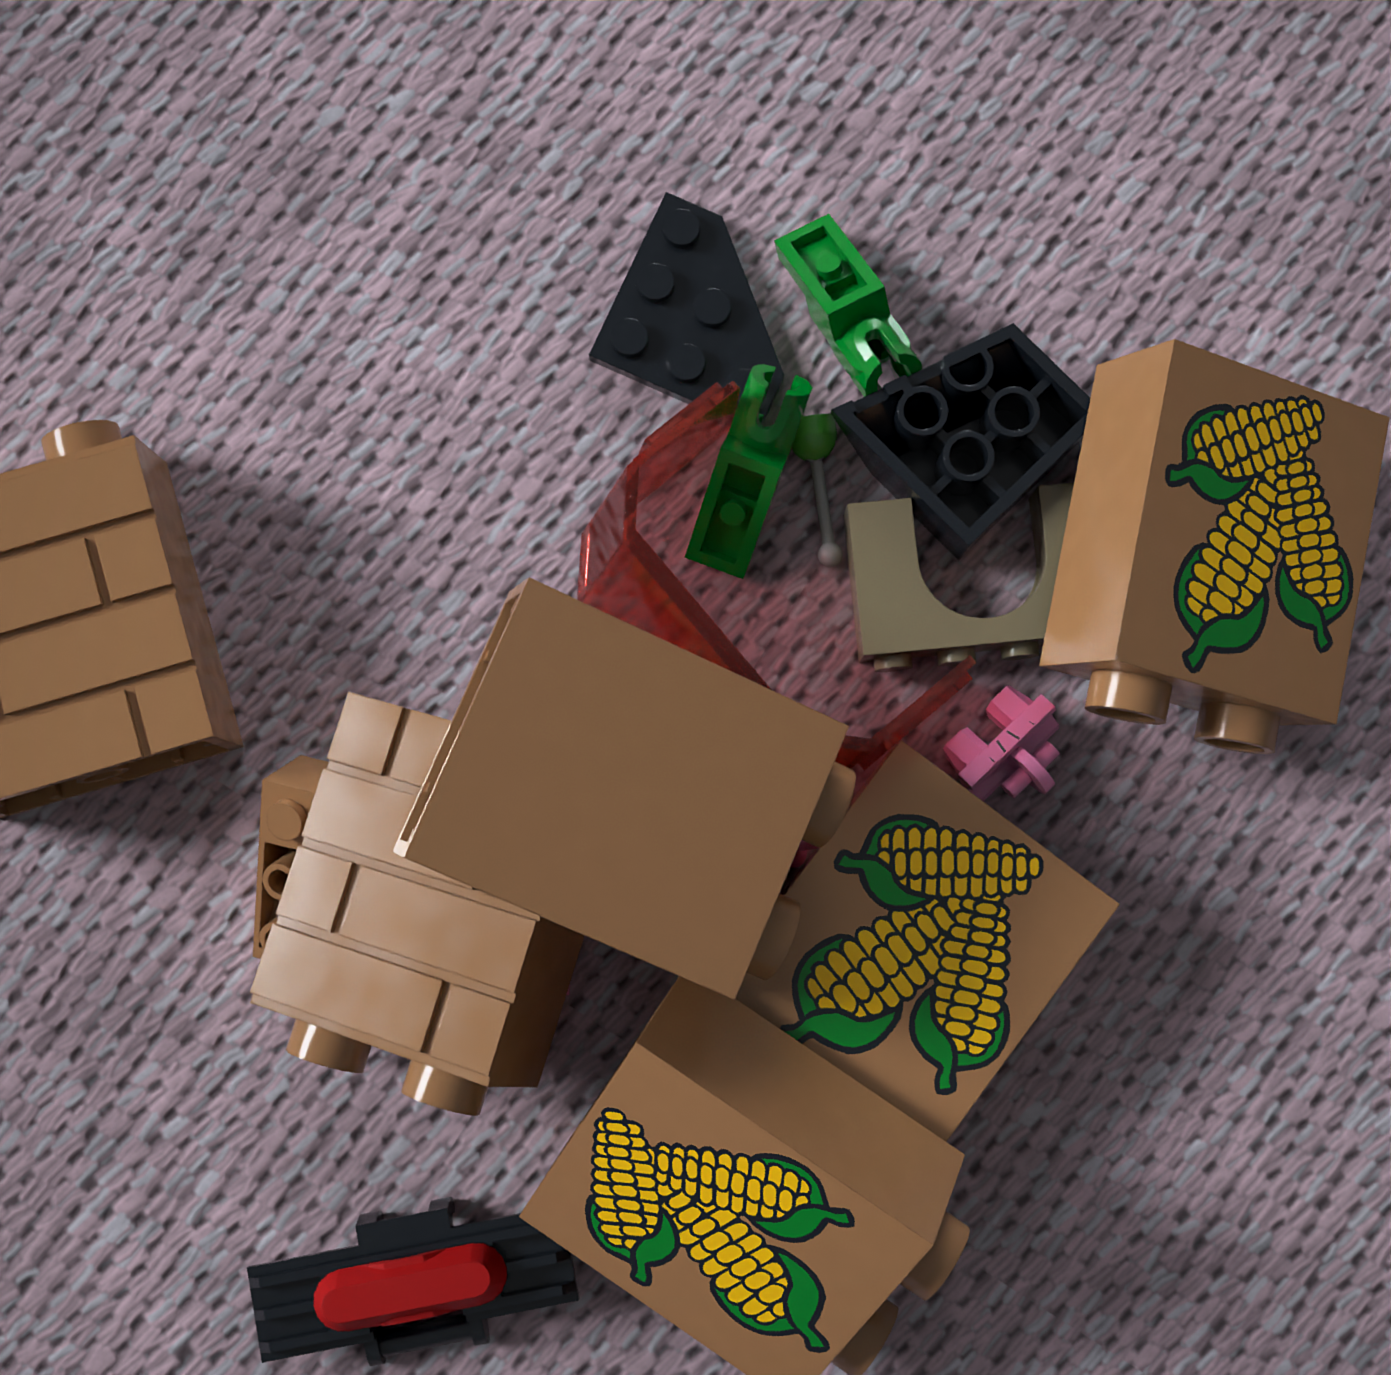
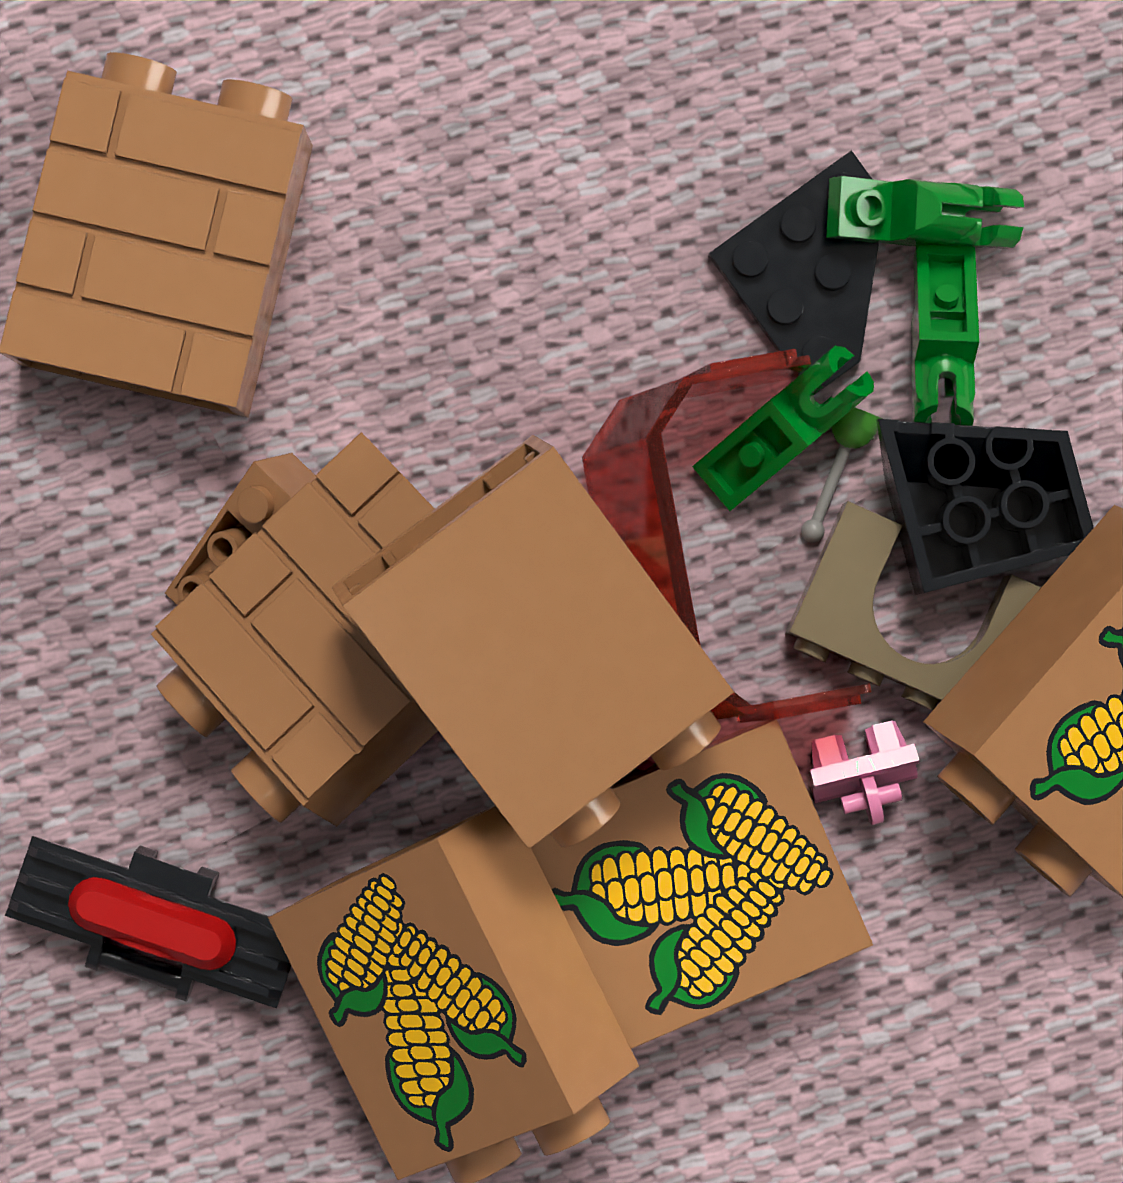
camera: 25 degrees right, 5 degrees up
(761, 208) = (919, 212): none -> green plate

